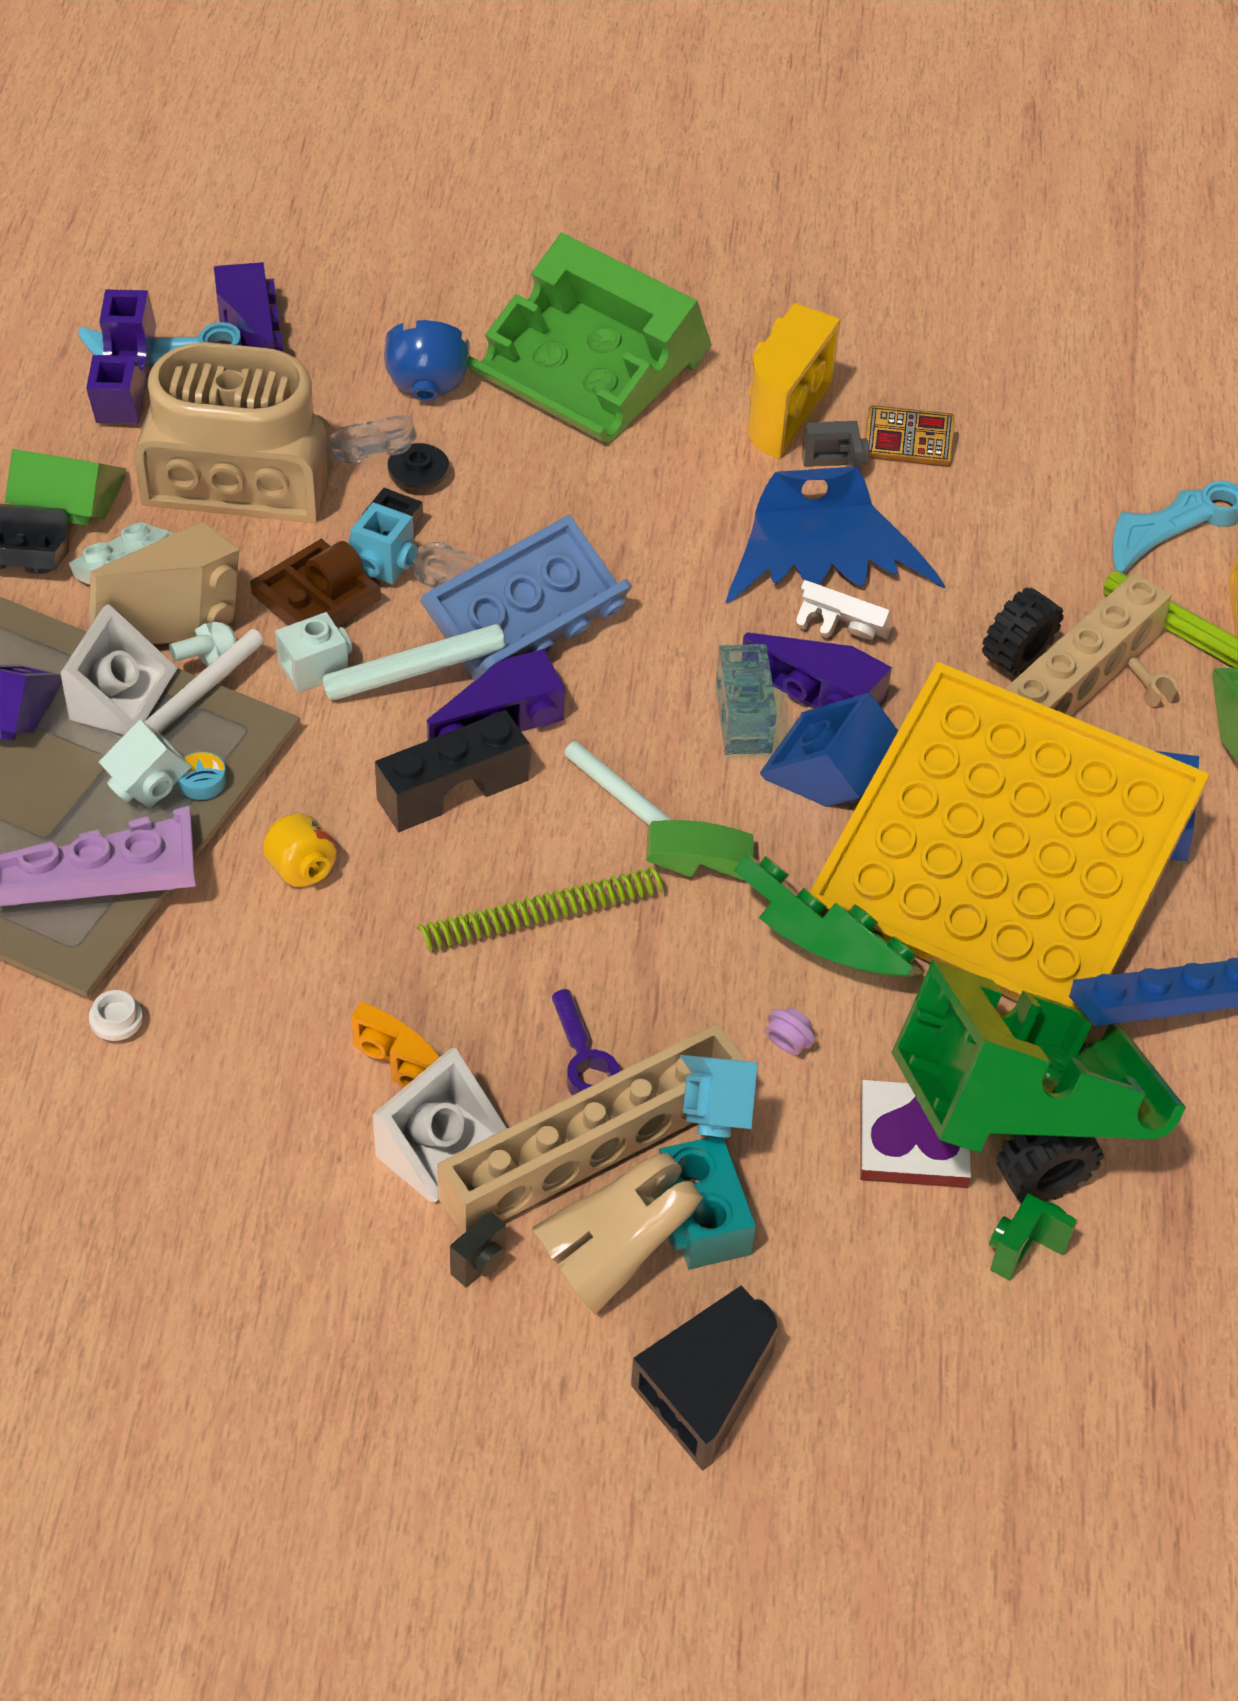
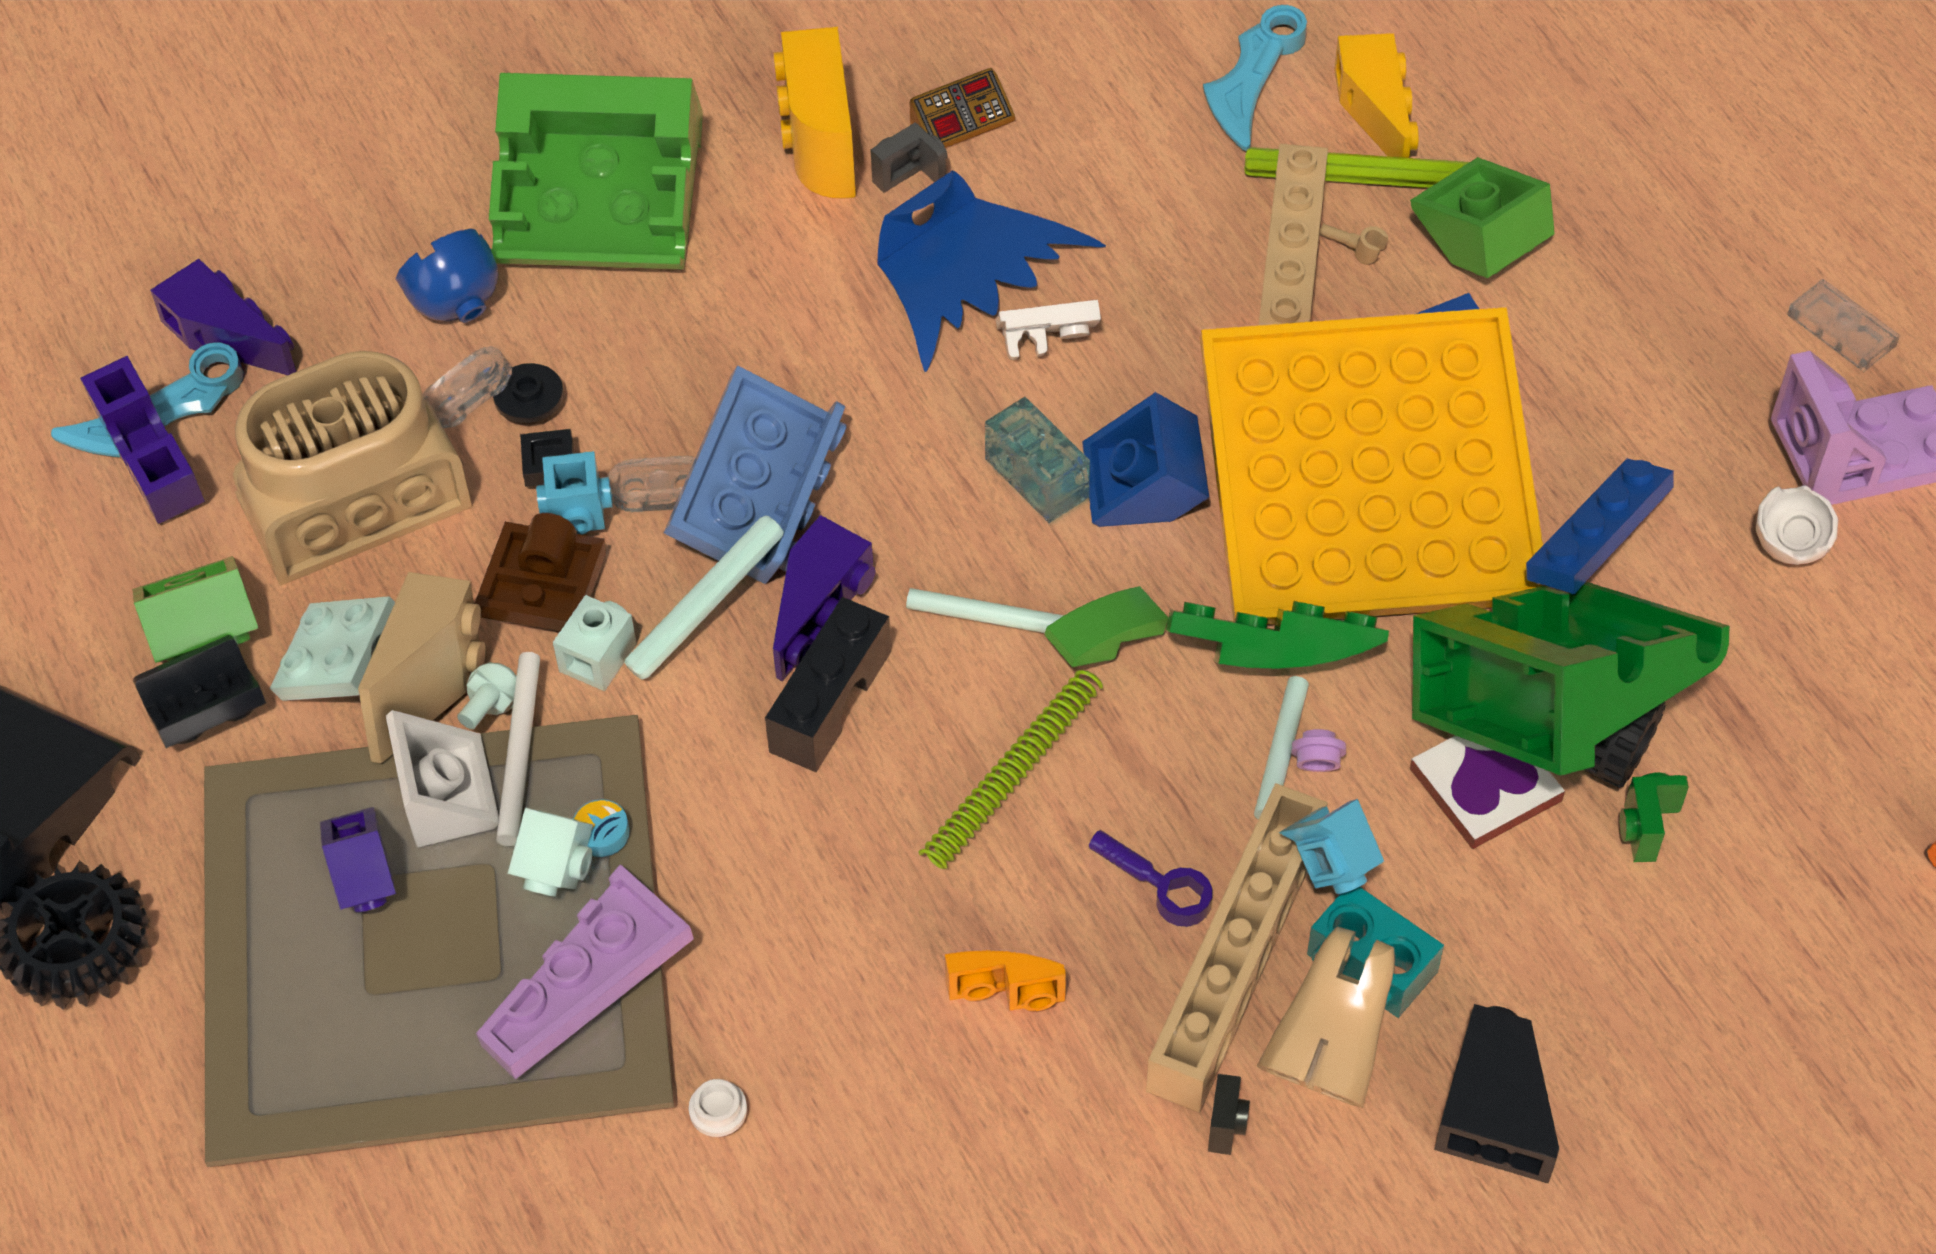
camera: 30 degrees left, 5 degrees up
(298, 847) = (752, 844): yellow head -> none
(432, 1121) = (1103, 1029): white slope -> none
(787, 998) = (1282, 740): none -> light aqua bar
(822, 671) = (1079, 393): dark purple slope -> none
(1022, 631) = (1224, 255): black tyre -> none

